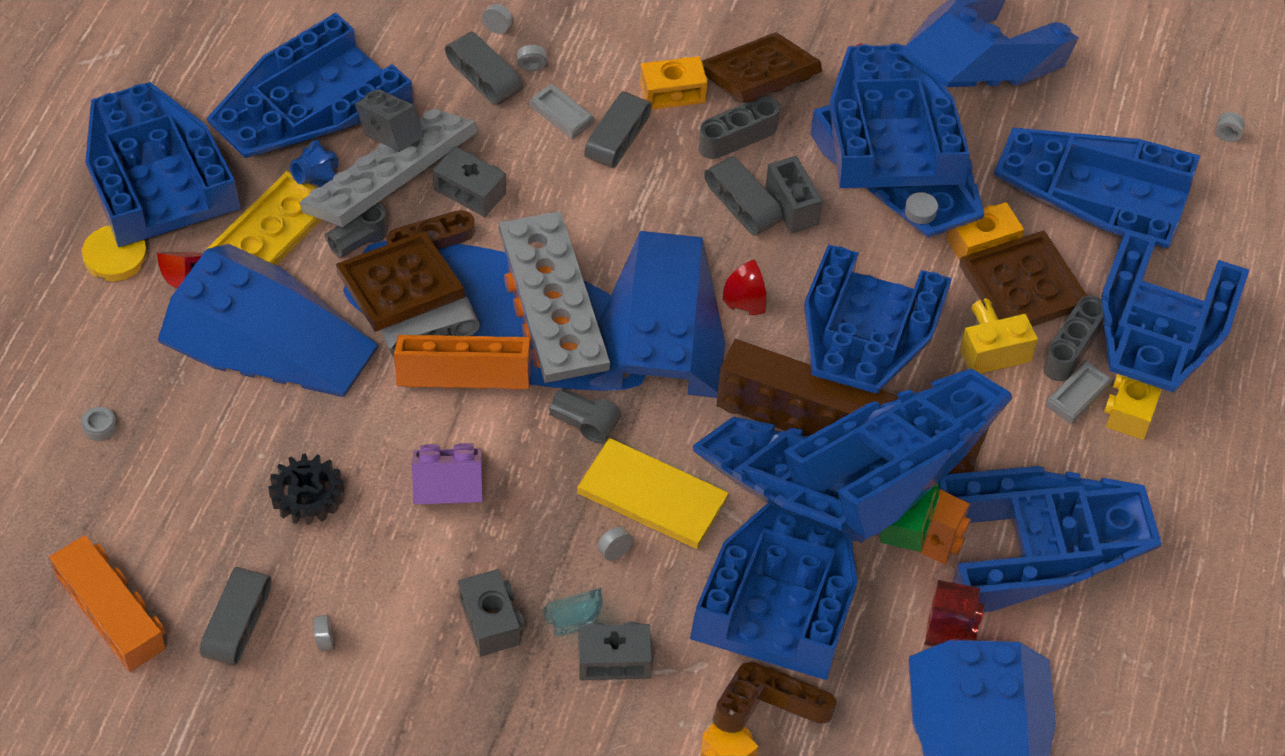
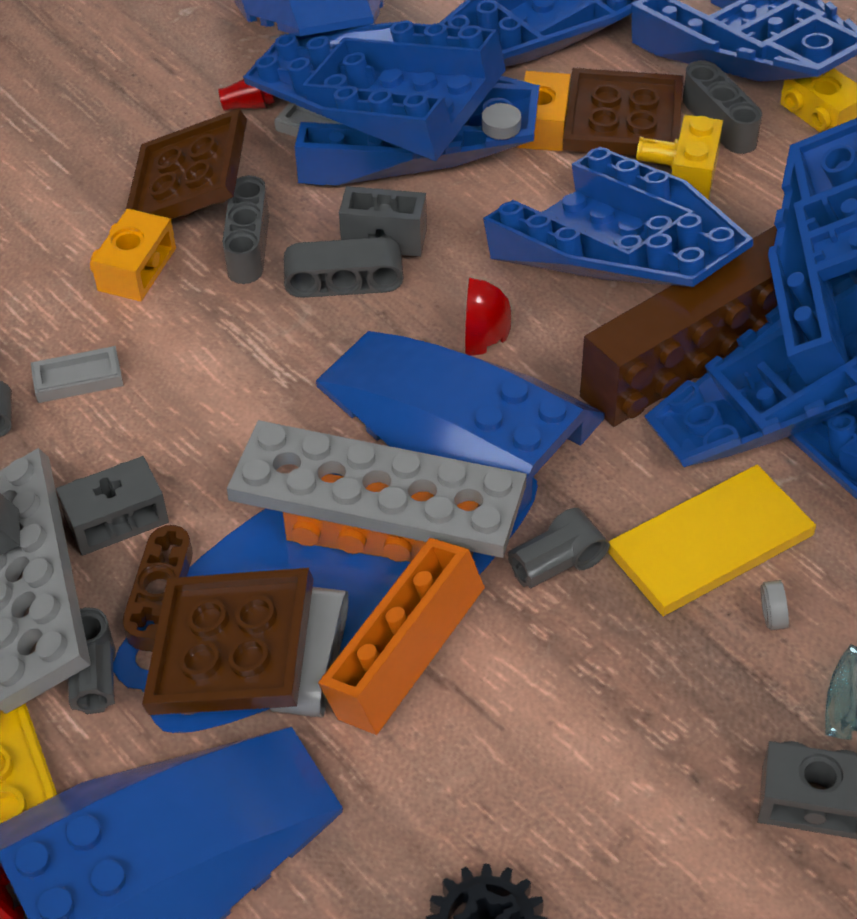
camera: 55 degrees left, 5 degrees down
(447, 474) = (566, 738): medium lavender slope -> none
(618, 129) = (157, 331): dark grey beam -> none
(1078, 392) = (778, 132): light grey tile -> none

